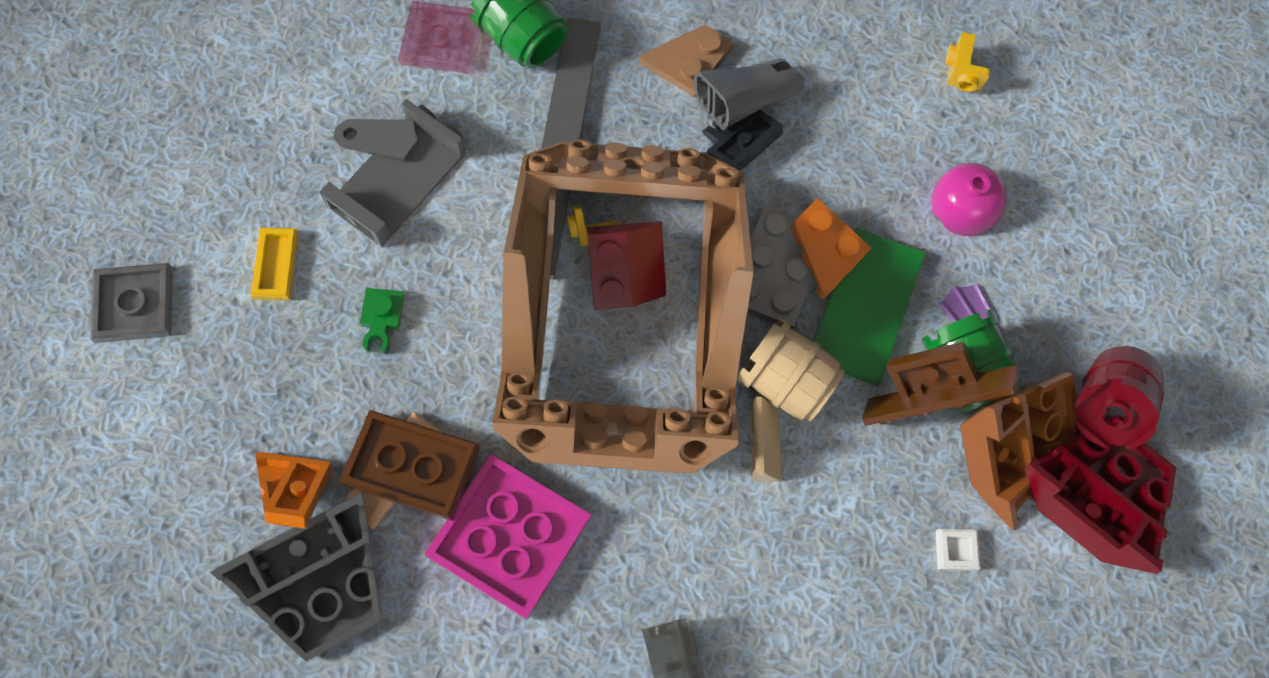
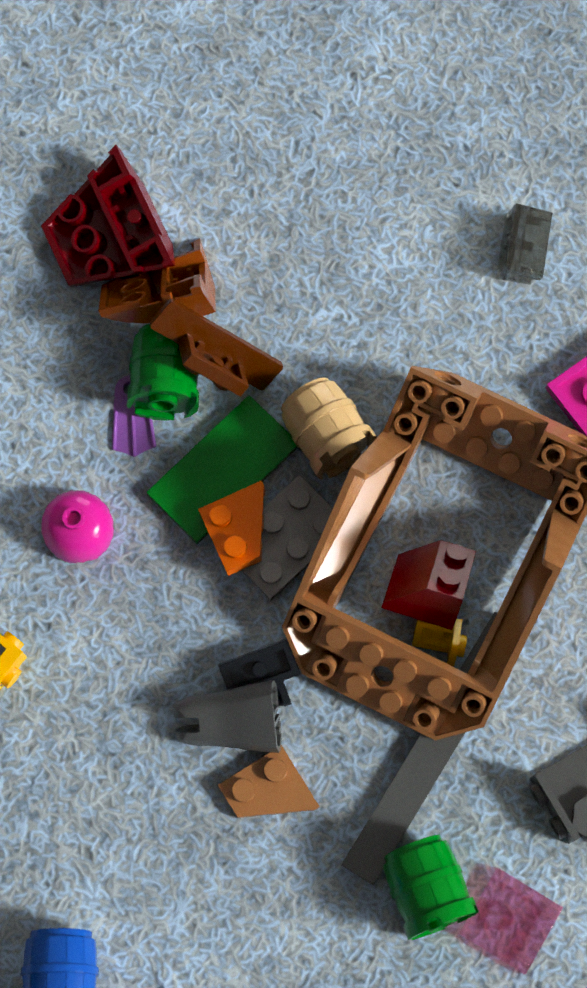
camera: 155 degrees left, 5 degrees up
(765, 441) = (373, 384): tan slope -> none
(958, 549) = (254, 241): white tile -> none
(1120, 398) = (61, 286): dark red piece -> none

